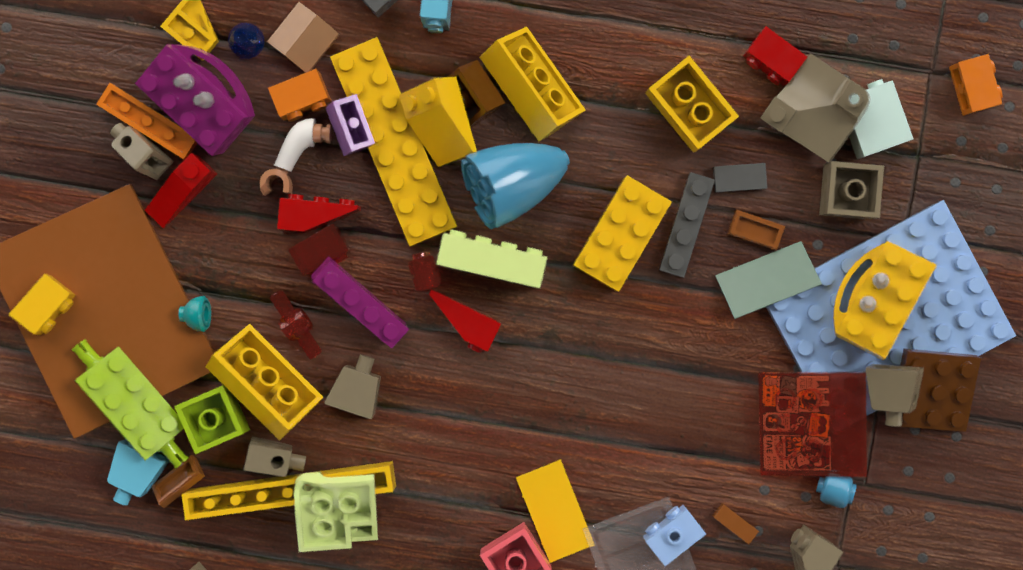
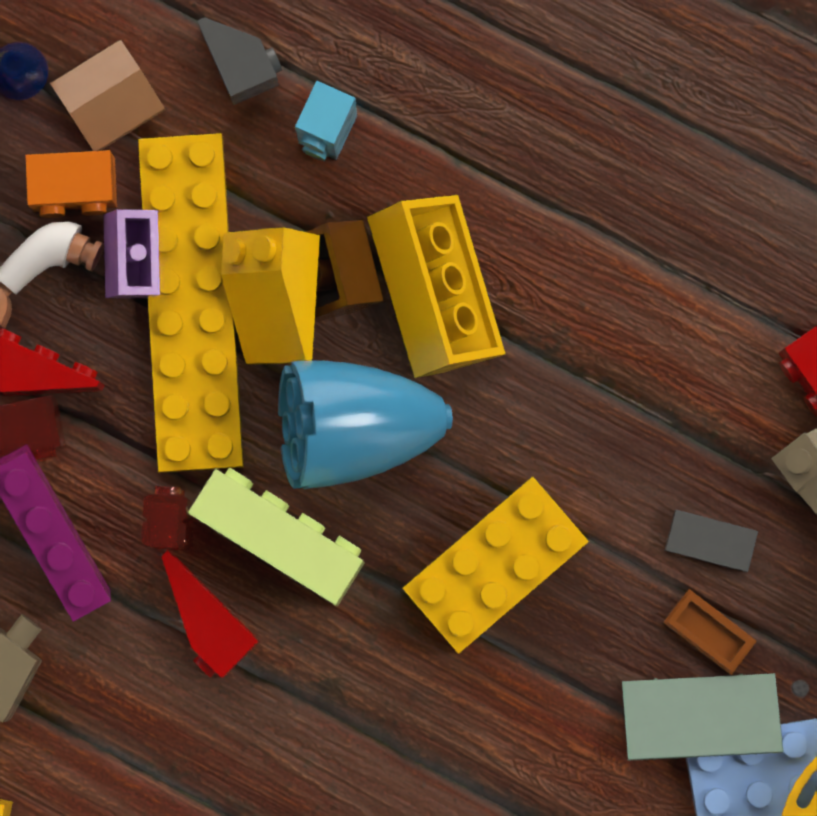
camera: 15 degrees right, 5 degrees down
(686, 224) = (602, 586): dark grey plate -> none
(691, 104) = (671, 400): yellow brick -> none

